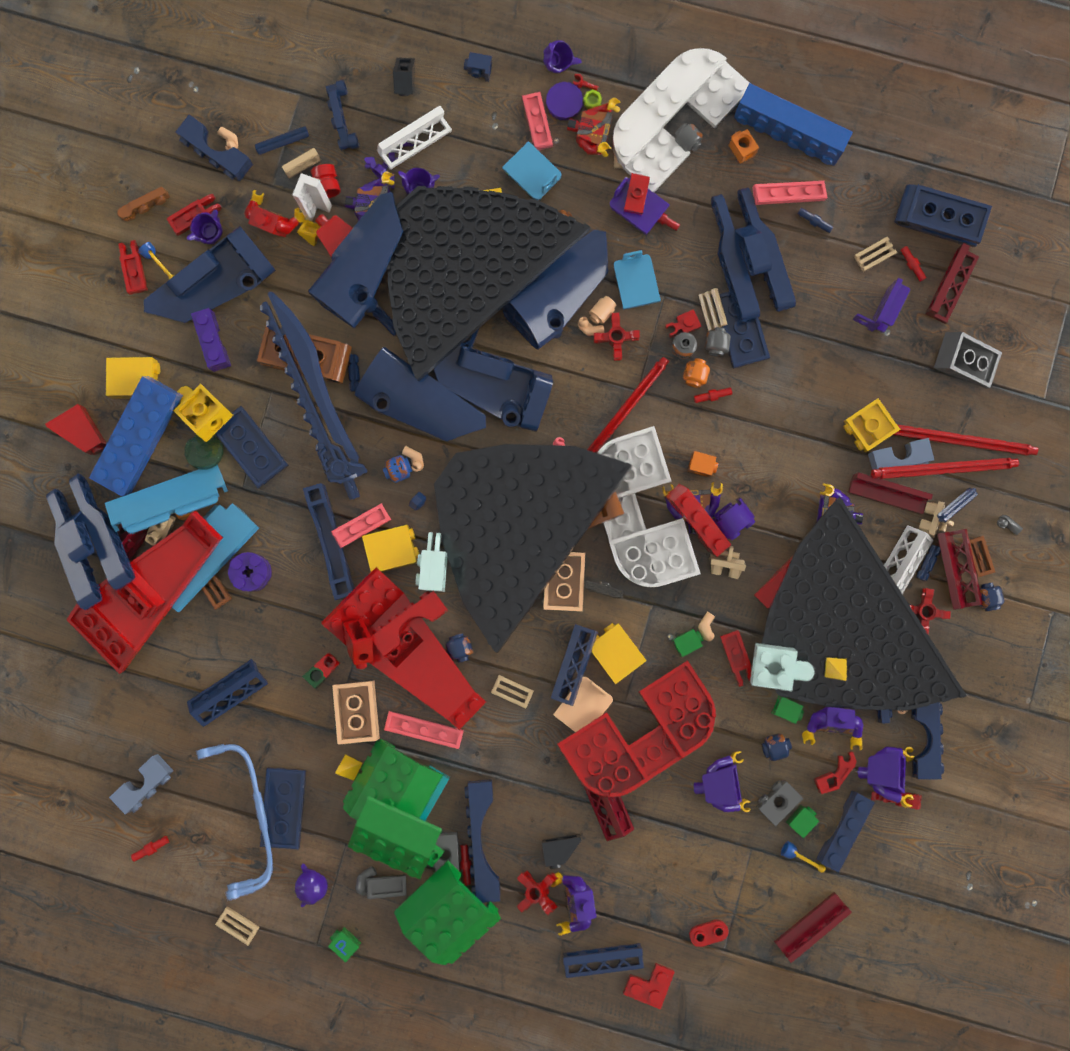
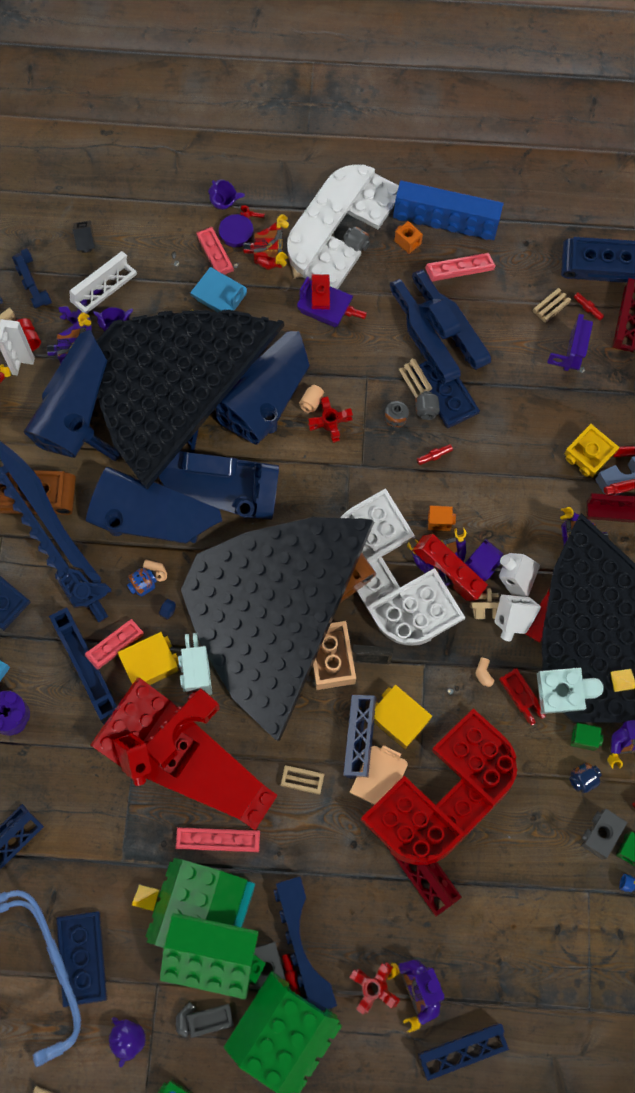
camera: 15 degrees left, 15 degrees down
(308, 231) = (17, 383): yellow slope -> none
(321, 670) = (98, 800): leg -> none
(332, 232) = (37, 378): red torso -> none
(353, 370) = (81, 501): dark blue axle -> none
(356, 712) = (142, 834): light nougat brick -> none
(459, 647) = (238, 745): dark blue head -> none
(478, 65) = (151, 214): dark blue brick -> none
(559, 849) = (387, 937): black slope -> none
(587, 328) = (300, 418): light nougat arm -> none
(592, 99) = (261, 223): lime tile -> none
(628, 405) = (359, 474): red piece -> none
(636, 280) = (337, 365): dark azure piece -> none
(652, 991) = (525, 1074): red plate -> none
(685, 322) = (393, 393): red plate -> none
(688, 642) = (469, 691): green brick -> none
(696, 373) = (414, 437): orange head -> none
(708, 931) = (568, 992): red plate -> none
(722, 785) = (541, 828): dark purple torso -> none
(751, 579) = (515, 615): none -> white torso
(764, 538) = (518, 573): none -> white torso
(815, 220) = (489, 286): dark blue bar -> none

